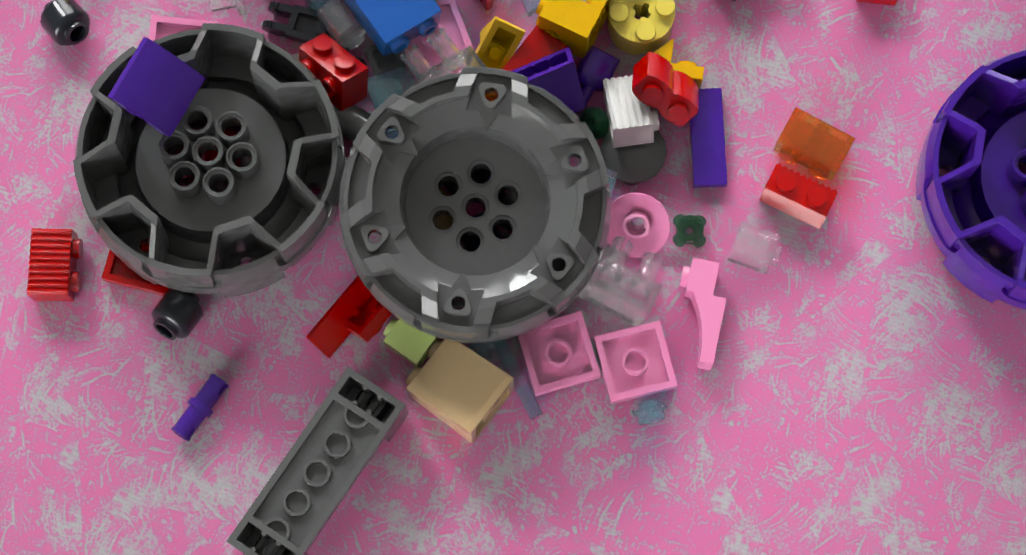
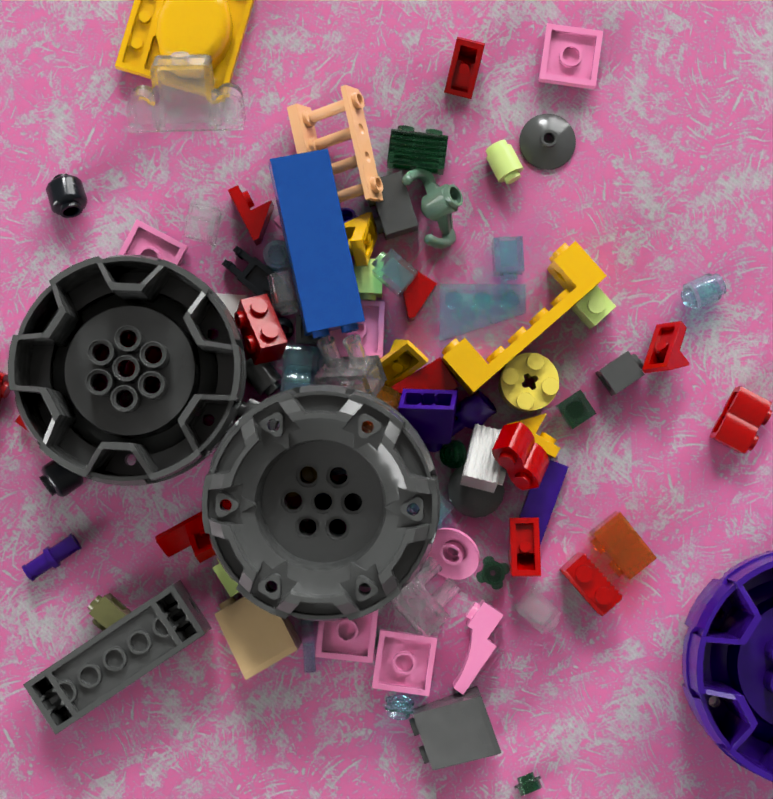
camera: 25 degrees right, 10 degrees up
(156, 87) = (99, 304): dark purple slope -> none
(281, 437) = (107, 611): none -> olive brick
(703, 27) = (575, 409): none -> clear green plate
(709, 180) = (524, 547): none -> red slope
(721, 405) = (454, 730): none -> dark grey slope
(826, 437) = (528, 784): none -> clear green plate

